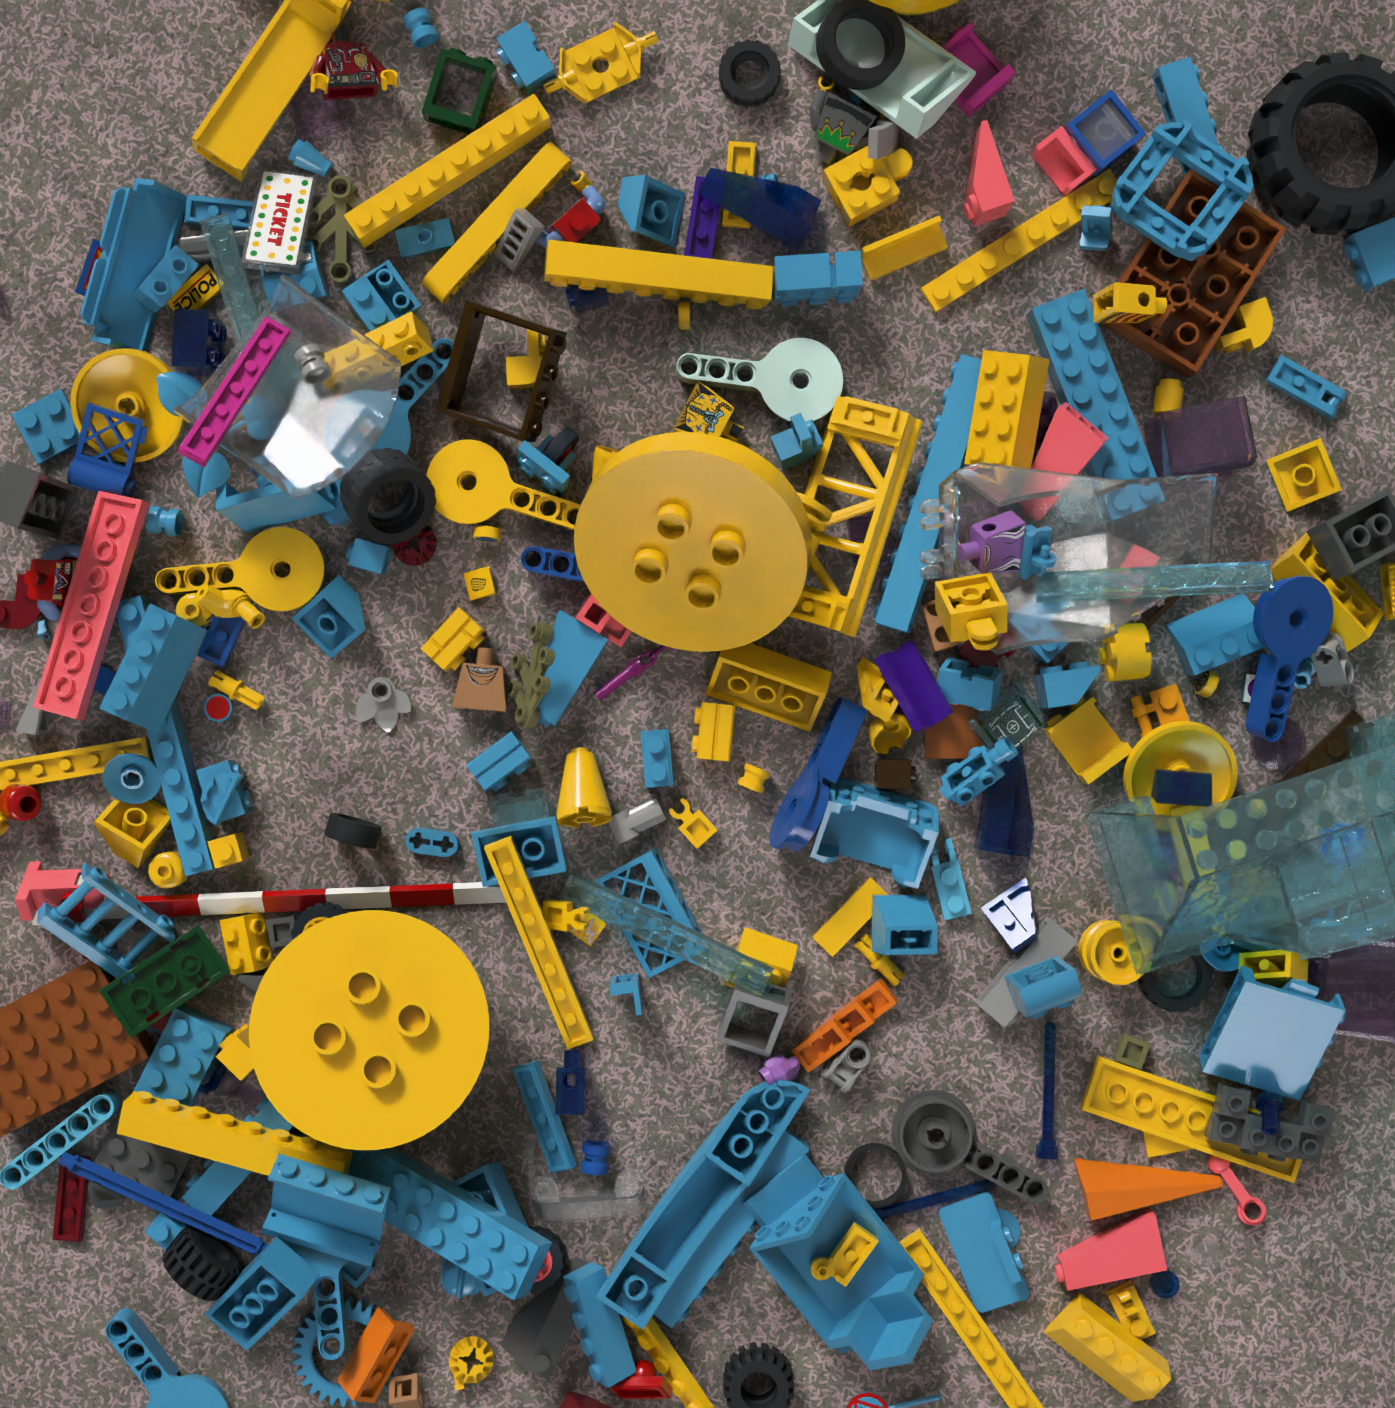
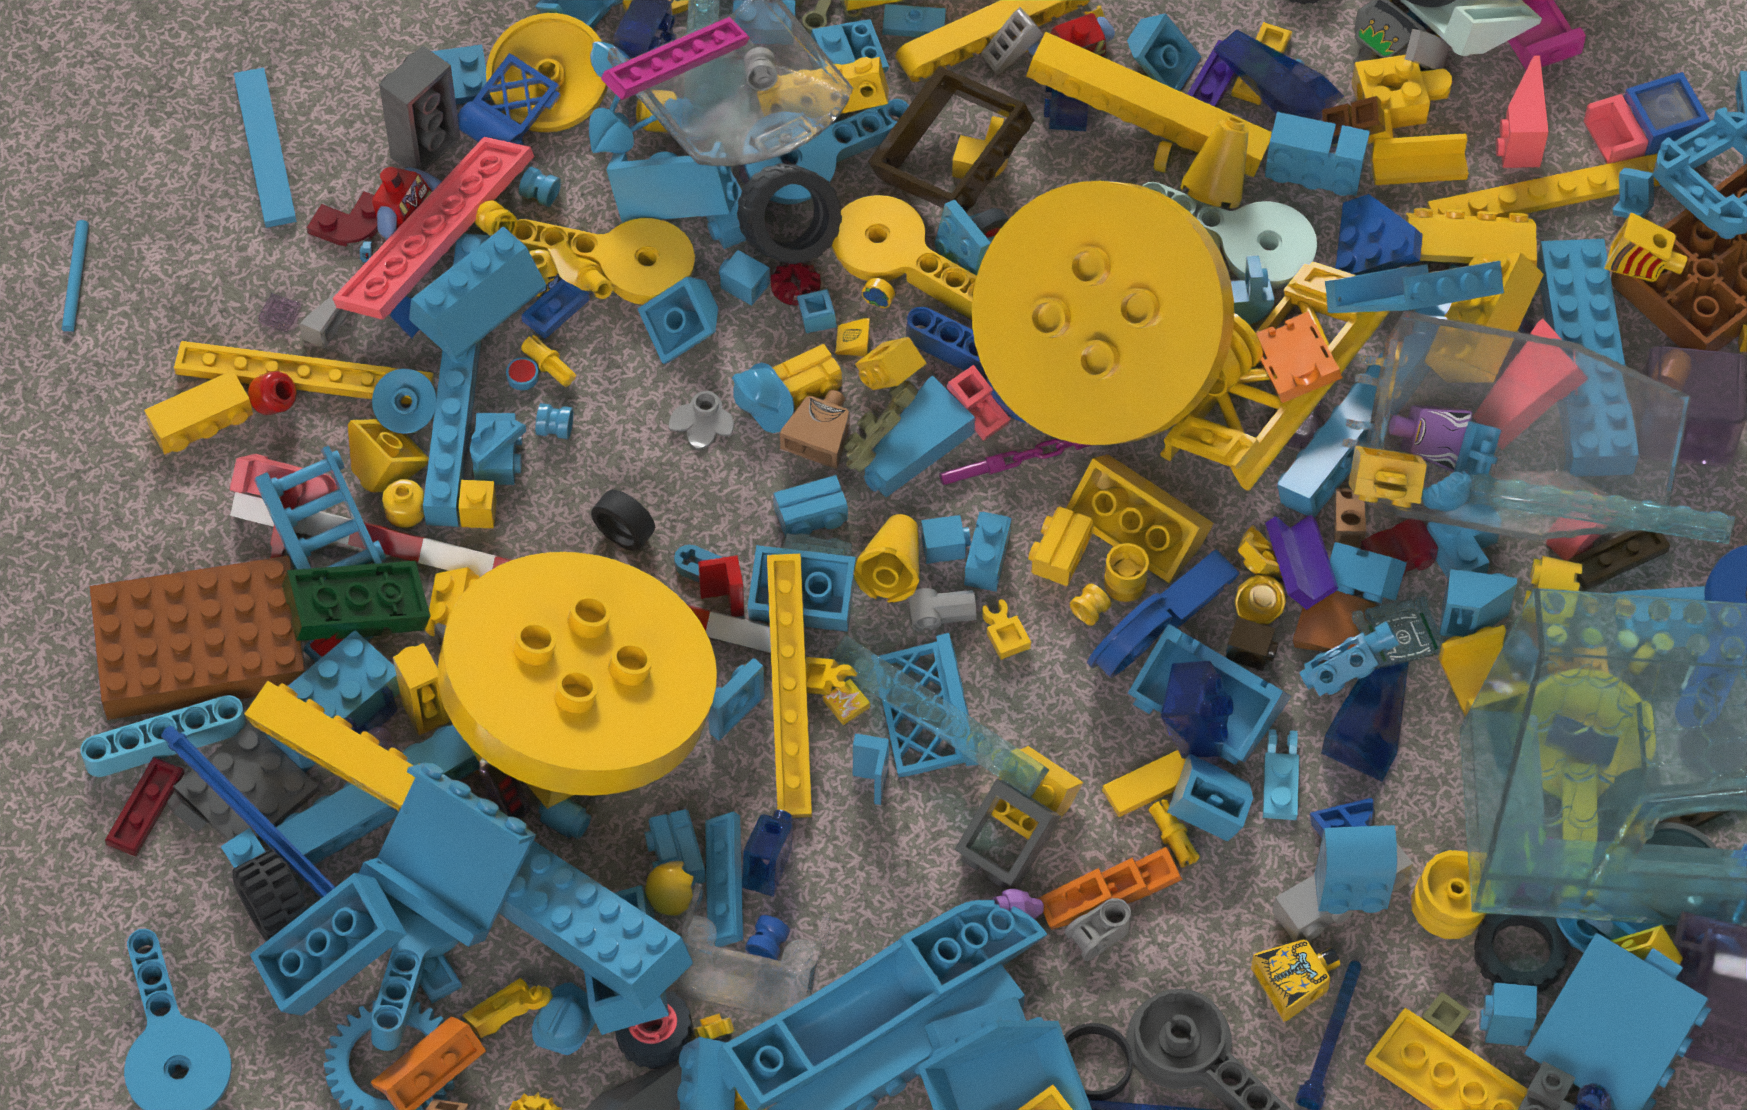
camera: 15 degrees right, 30 degrees down
(141, 584) = (492, 217): none -> yellow wheel
(261, 749) = (554, 421): none -> dark azure wheel
(415, 1279) = (504, 1005): none -> yellow hinge
(424, 672) = (763, 396): none -> dark azure piece
(441, 568) = (817, 311): none -> dark azure slope
(463, 864) = (722, 578): none -> red panel
(495, 975) = (736, 698): none -> dark azure plate
(498, 1106) = (675, 840): none -> dark azure brick
(505, 1158) = (669, 888): none -> yellow hair
(520, 613) = (890, 364): none -> yellow brick
(581, 1249) = (713, 1027): none -> yellow plate
(618, 756) = (944, 539): none -> dark azure brick
(738, 327) = (1220, 165): none -> yellow cone
(775, 743) = (1126, 572): none -> yellow wheel
(845, 236) = (1362, 114): none -> reddish brown hips
(859, 504) = (1297, 358): none -> orange piece
(872, 864) = (1196, 709): none -> clear blue brick
(889, 350) = (1375, 238): none -> blue plate
(945, 427) = (1412, 288): none -> dark azure panel
(971, 324) = (1460, 237): none -> yellow slope
(1009, 1056) = (1294, 975): none -> torso
(1027, 610) = (1448, 493): none -> dark azure hair
(1184, 1044) = (1509, 1014): none -> dark azure brick

